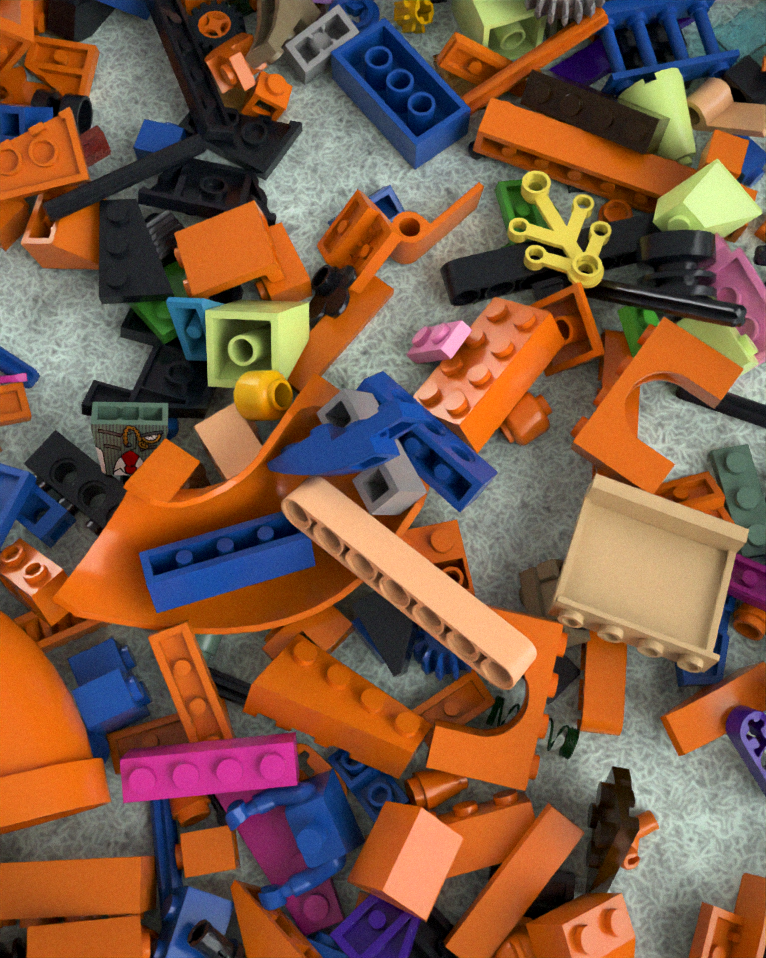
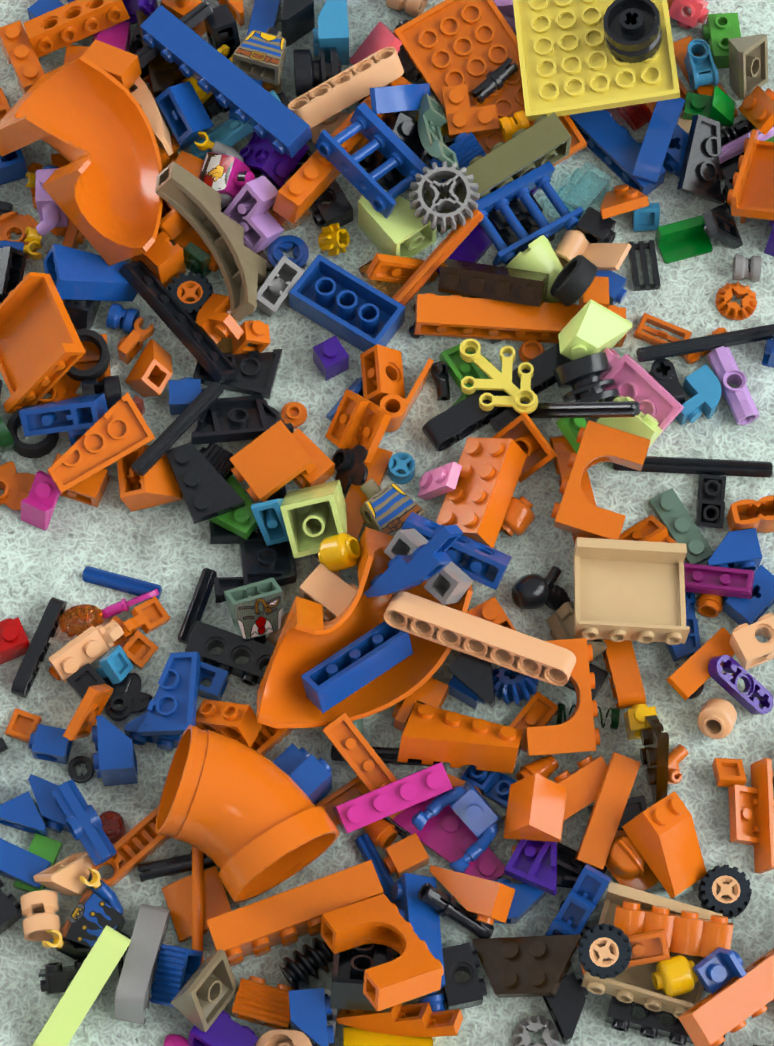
camera: 20 degrees left, 5 degrees down
(50, 37) = (100, 368): none -> black tyre
(71, 411) = (197, 604): none -> black axle
(120, 33) = (121, 318): none -> blue wheel
(125, 65) = (132, 344): none -> orange plate
(132, 102) = (151, 371): none -> orange slope
(287, 207) = (294, 413): none -> orange plate
(357, 149) = (330, 358): none -> dark purple brick
(358, 354) = (387, 507): none -> torso
(397, 304) = (402, 462): none -> dark azure wheel
(414, 184) = (382, 373): none -> orange brick
(488, 216) = (441, 378): none -> black arm
(515, 528) = (534, 591): none -> black piece
(599, 757) = (635, 719): none -> yellow brick
(701, 132) = (573, 280): none -> black tyre
(709, 879) = (728, 772): none -> orange plate
(716, 793) = (717, 718): none -> light nougat head

